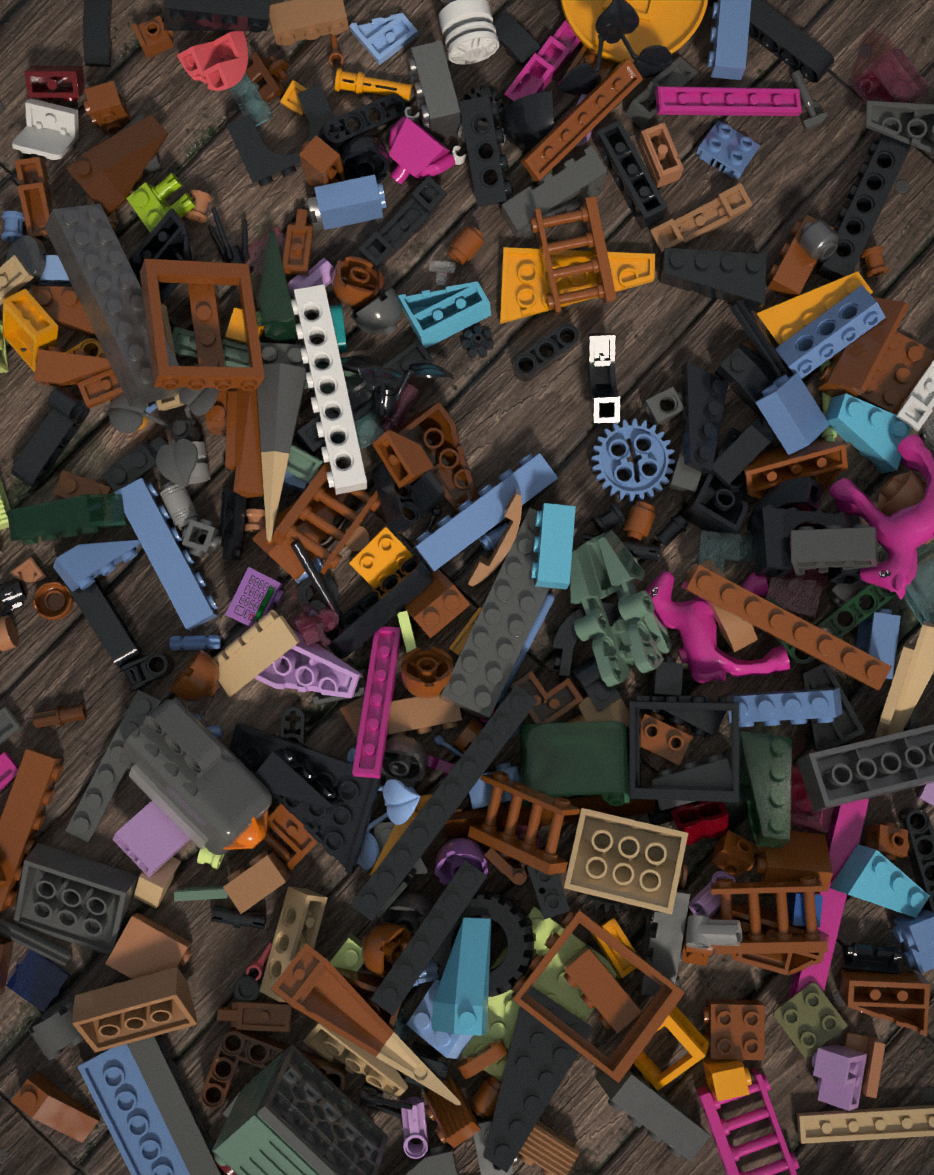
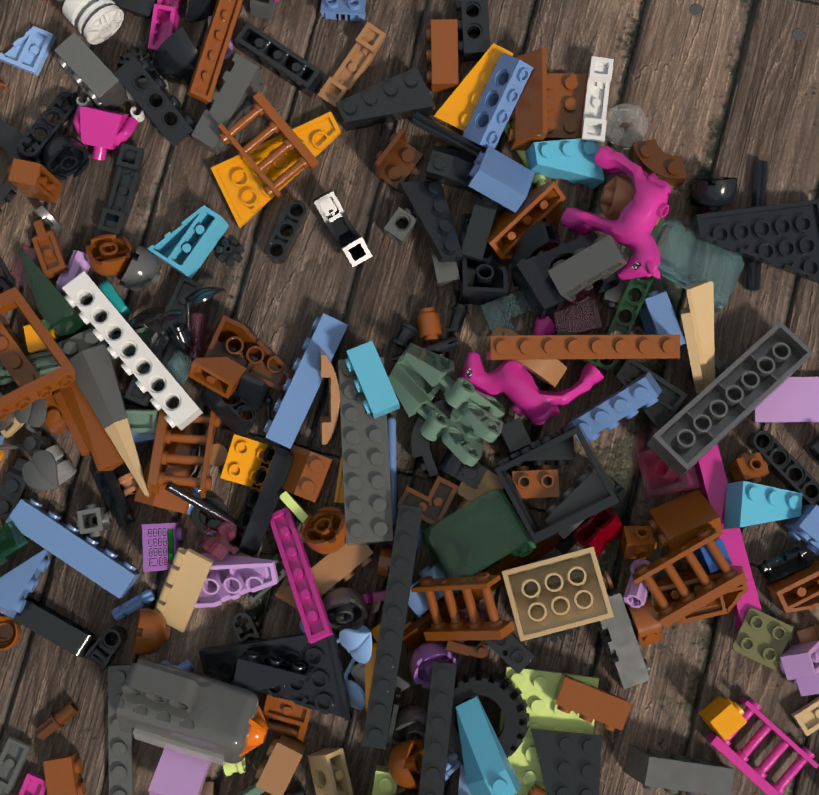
camera: 25 degrees left, 0 degrees up
(179, 504) = (62, 504): light grey head -> none
(350, 201) = (71, 195): medium blue brick -> none
(359, 86) = (31, 101): light orange pin -> none
(439, 740) = (365, 577): medium blue hinge -> none
(442, 269) = (172, 209): clear tile -> none
(465, 245) = (180, 181): dark orange brick -> none
(491, 539) = (322, 399): medium blue pin -> none
(619, 964) = (586, 663): light orange plate -> none
(641, 1031) = (639, 717): dark orange window -> none
(655, 456) = (415, 268): medium blue gear -> none
(660, 155) = (294, 32): nougat brick -> none
(689, 1037) = (670, 700): light orange window -> none
(695, 339) = (396, 160): none -> reddish brown bracket
(704, 932) = (647, 615): light grey piece -> none
(735, 1029) = (709, 677): dark orange brick -> none
(767, 786) = (635, 476): clear green wedge -> none
(818, 240) = (450, 34): flat silver head -> none
(874, 262) = (502, 29): dark orange bush -> none

